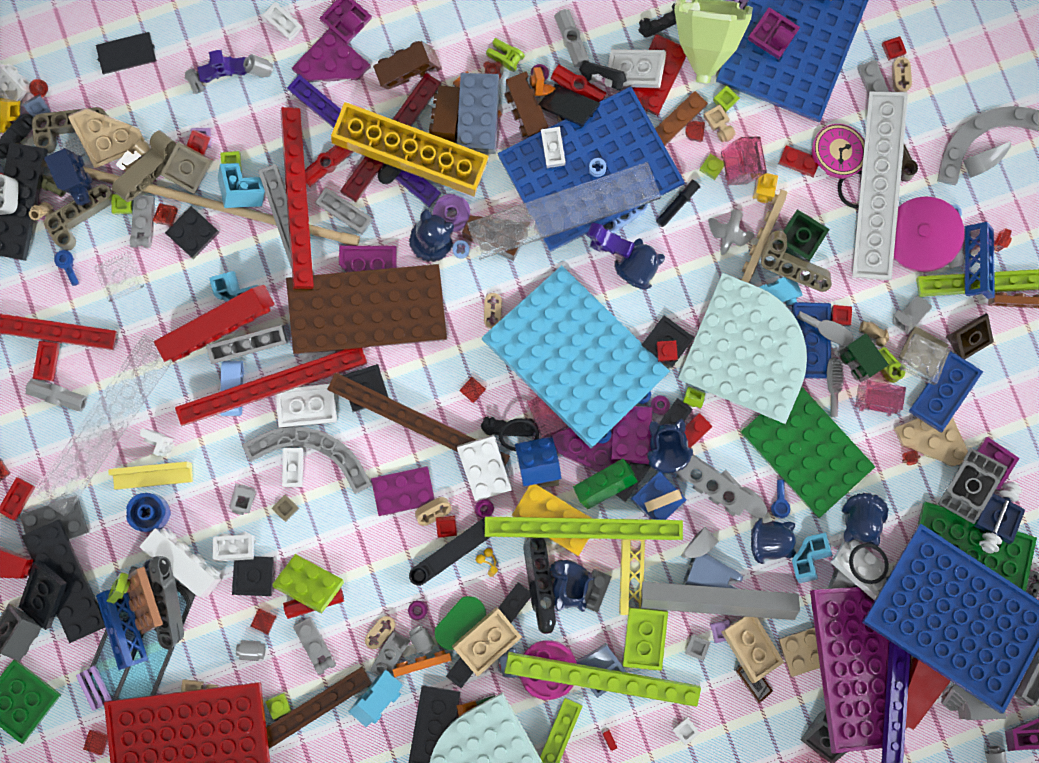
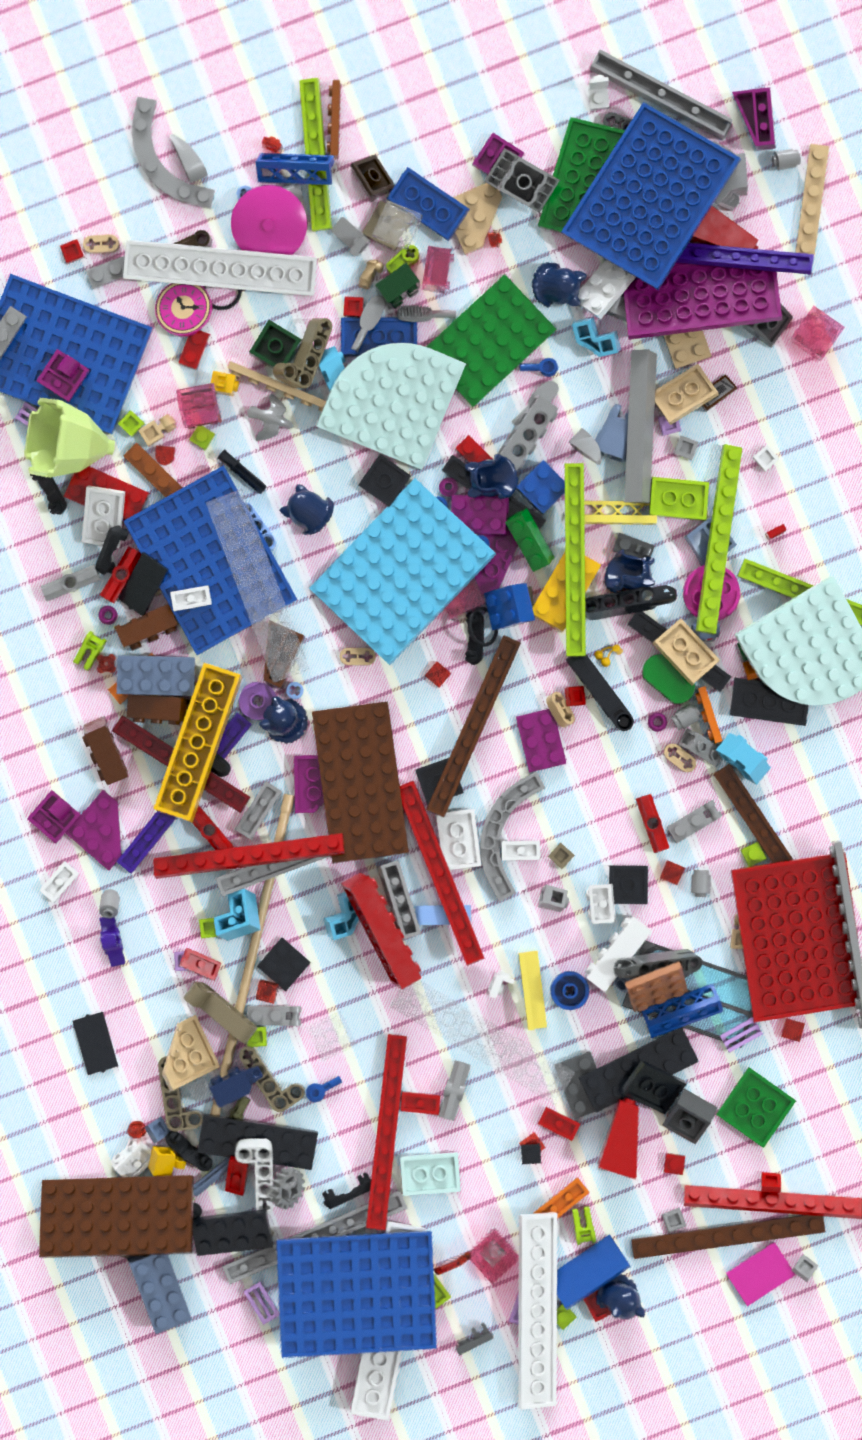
camera: 80 degrees left, 5 degrees up
(39, 211) = (268, 1116): tan arm -> none
(118, 588) = (644, 1010): lime plate -> none
(131, 158) = (211, 1029): tan plate -> none
(186, 167) = (219, 971): dark tan plate -> none
(193, 79) = (125, 970): light grey pin -> none
(308, 583) = (634, 828): lime plate -> none
(484, 467) = (516, 659): white plate -> none
(488, 512) = (559, 655): magenta plate -> none
(537, 82) = (122, 615): orange plate -> none
(593, 172) = (206, 549): light blue bush -> none
(607, 241) = (287, 539): dark purple piece -> none
(663, 500) = (545, 482): tan beam -> none
(667, 351) = (395, 481): red plate -> none
(694, 397) = (440, 453): lime plate -> none
(772, 540) = (580, 375): dark blue hair -> none
(854, 571) = (605, 298): black tyre -> none
(1000, 518) = (552, 153): dark blue plate -> none

